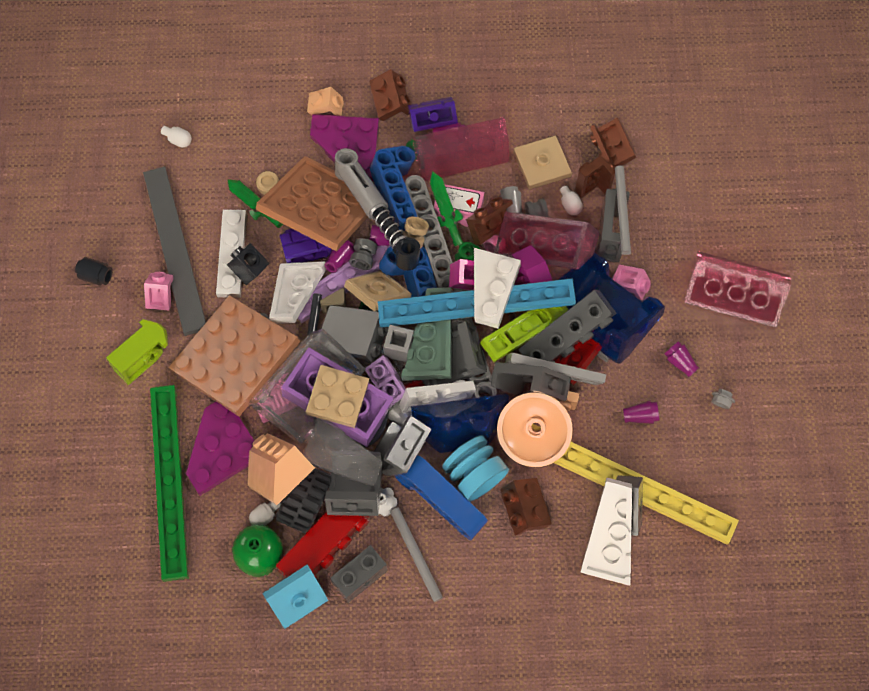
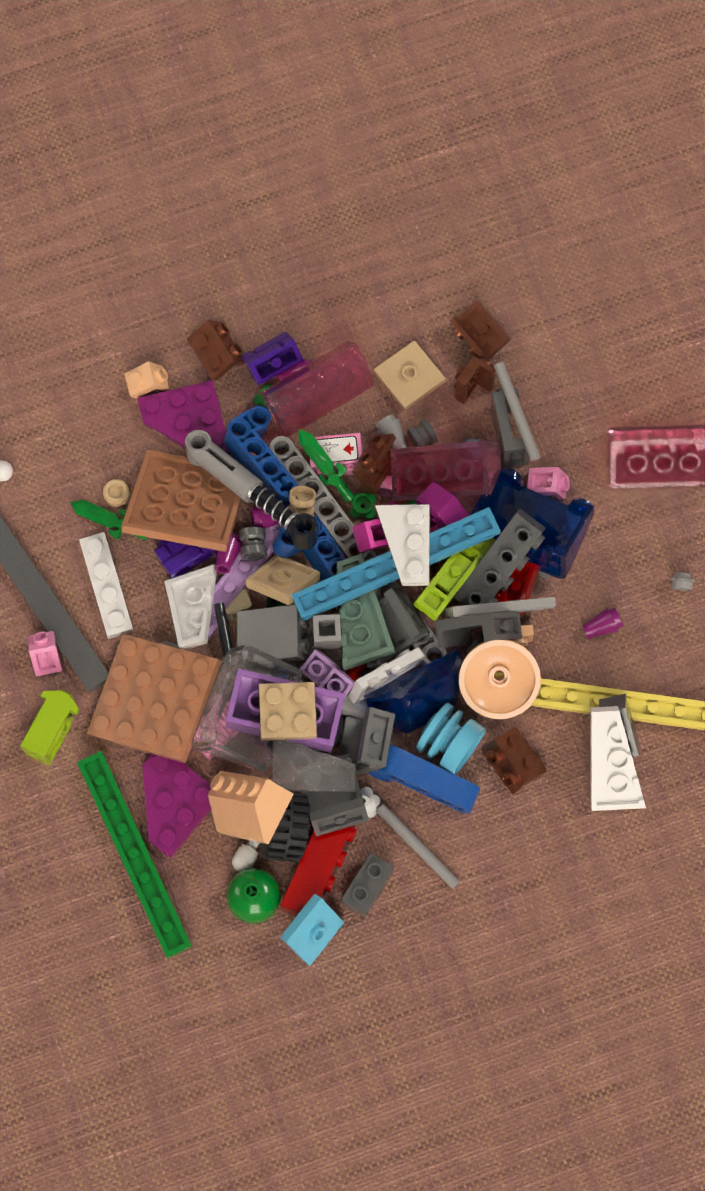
camera: 15 degrees left, 5 degrees up
(255, 261) = (131, 593): black brick -> none
(571, 201) = (455, 412): white cylinder -> none
(681, 358) = (625, 551): magenta cone -> none

